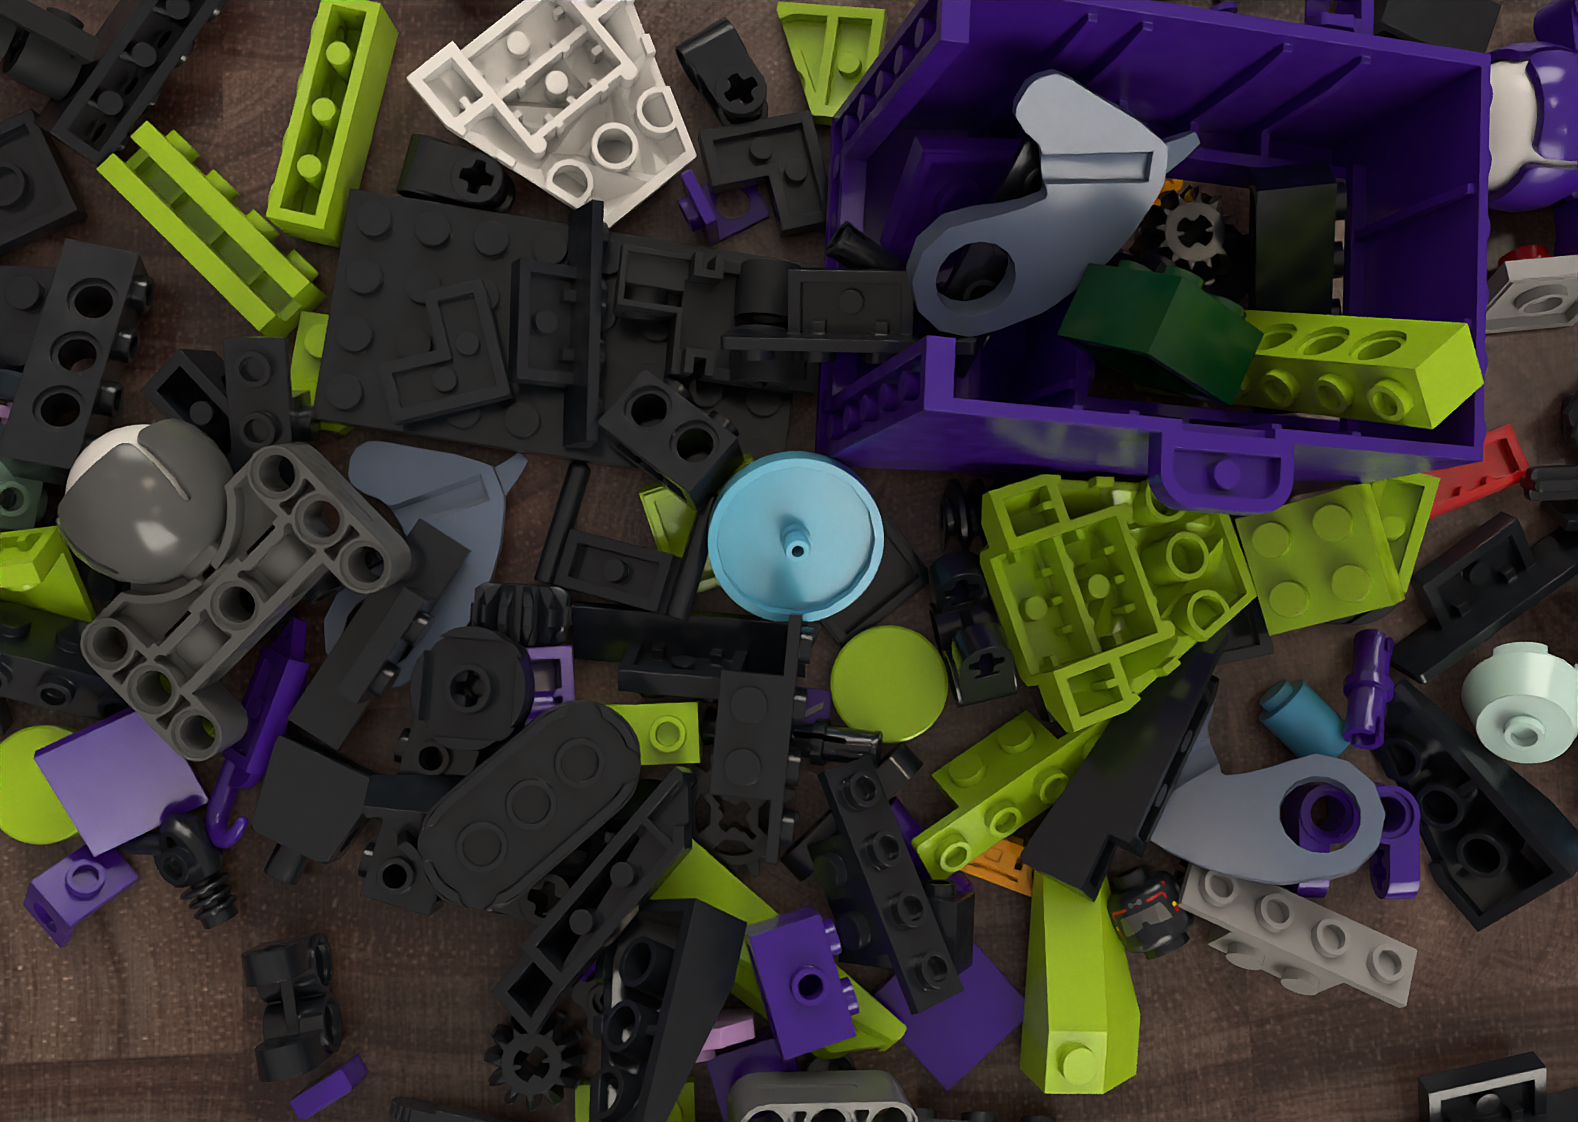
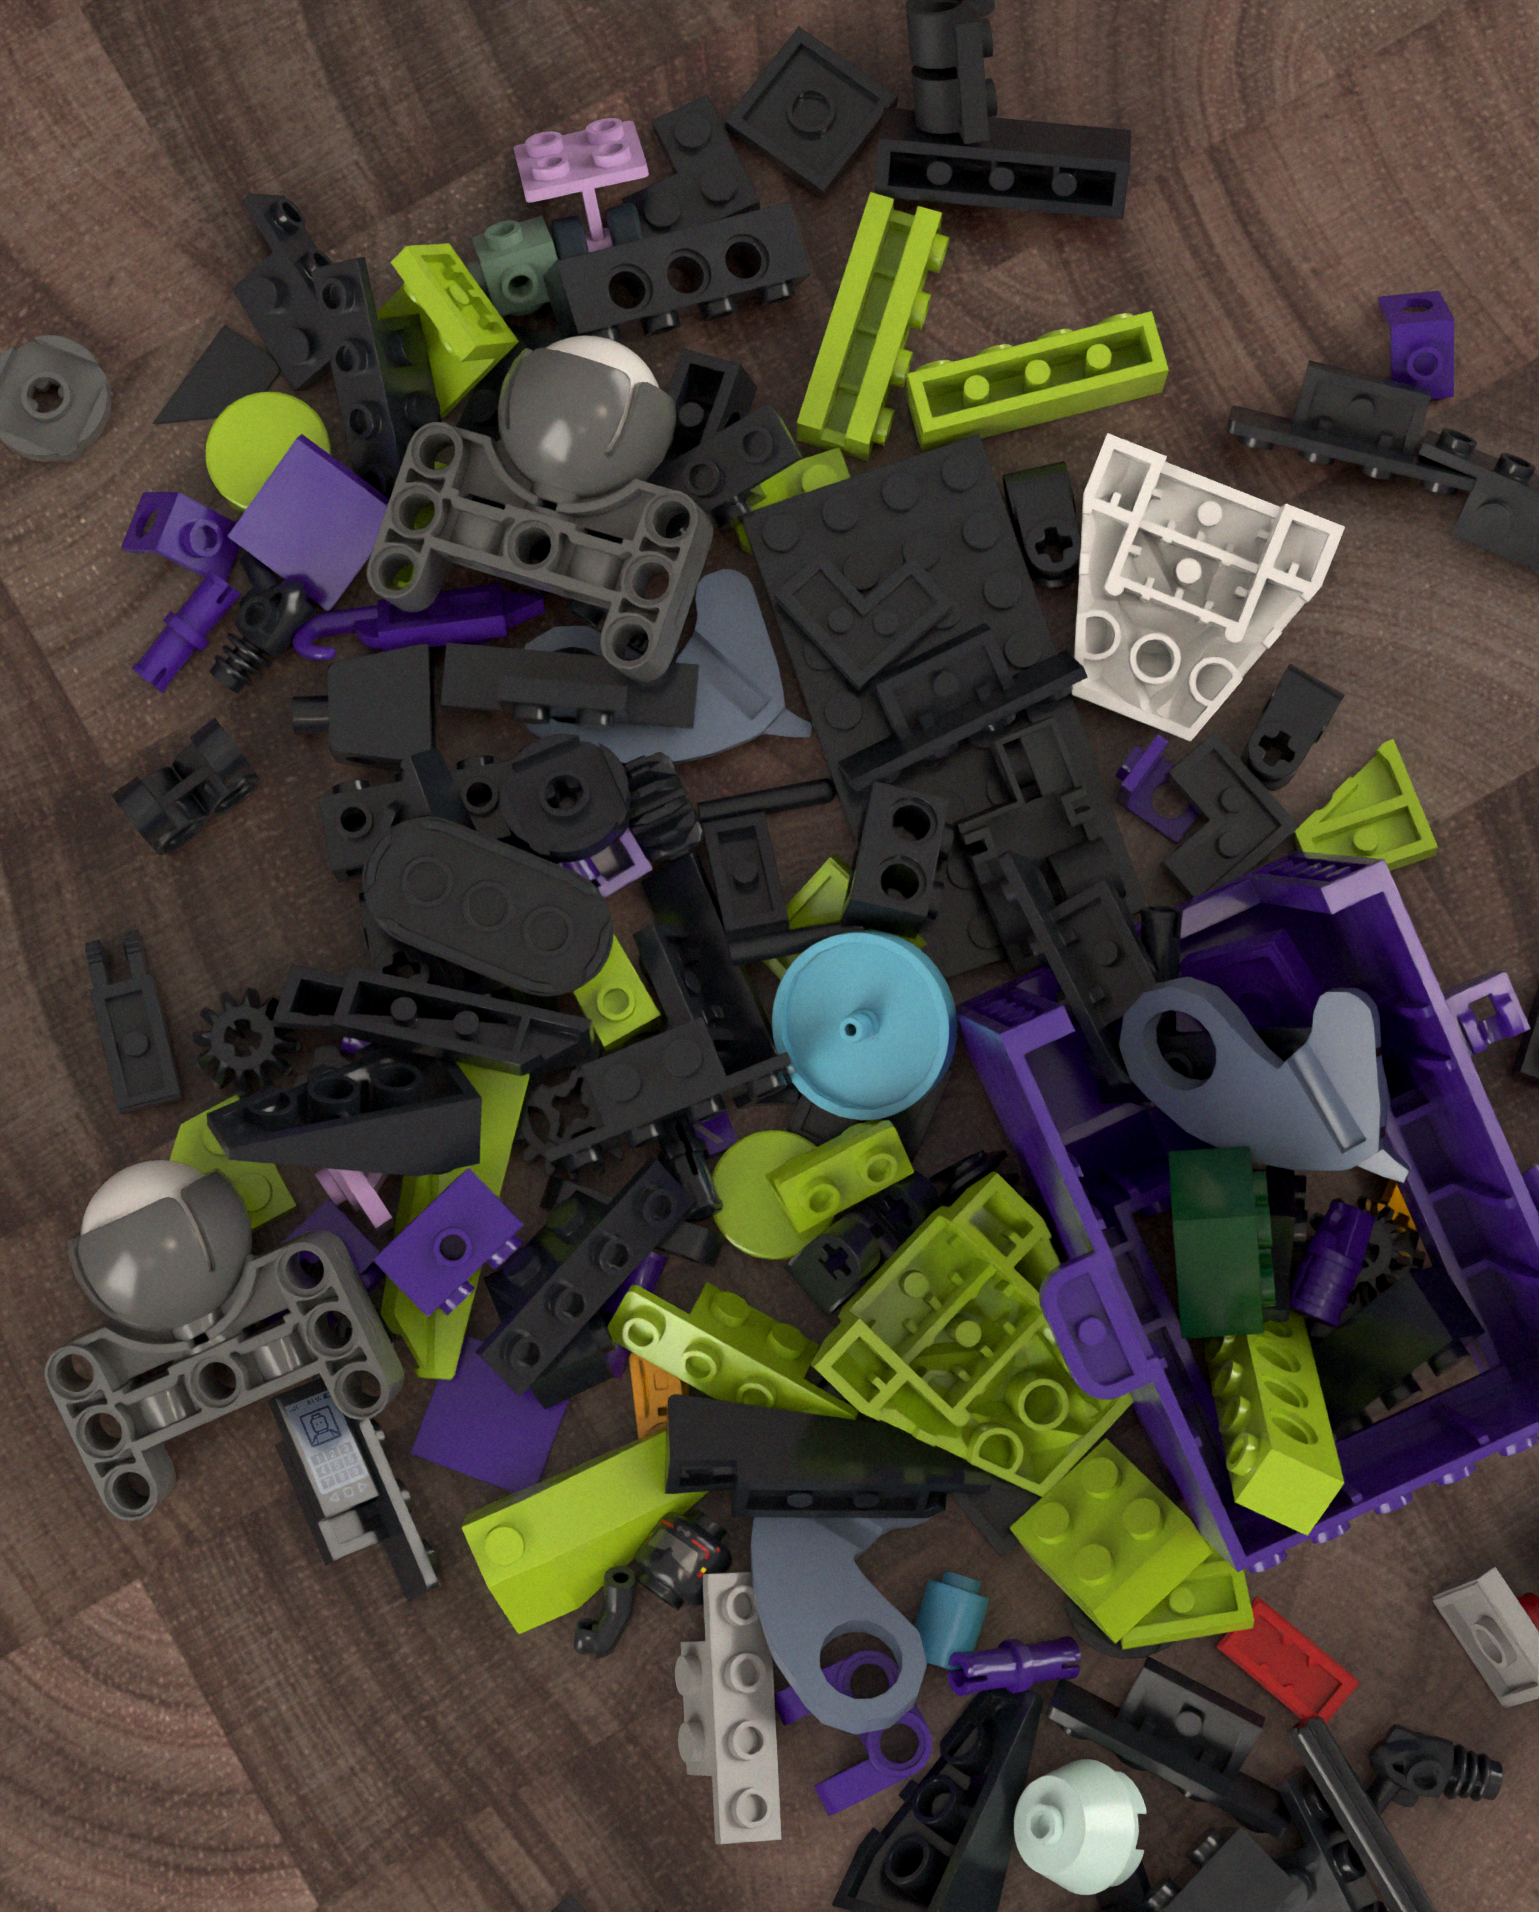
camera: 70 degrees right, 5 degrees down
(159, 931) = (186, 631): none -> dark purple pin
(329, 1087) = (122, 865): dark purple tile -> none
(906, 622) = (840, 1173): none -> lime bracket
(1160, 985) = (616, 1614): none -> black arm
(1202, 249) = (1331, 1264): none -> dark purple hinge

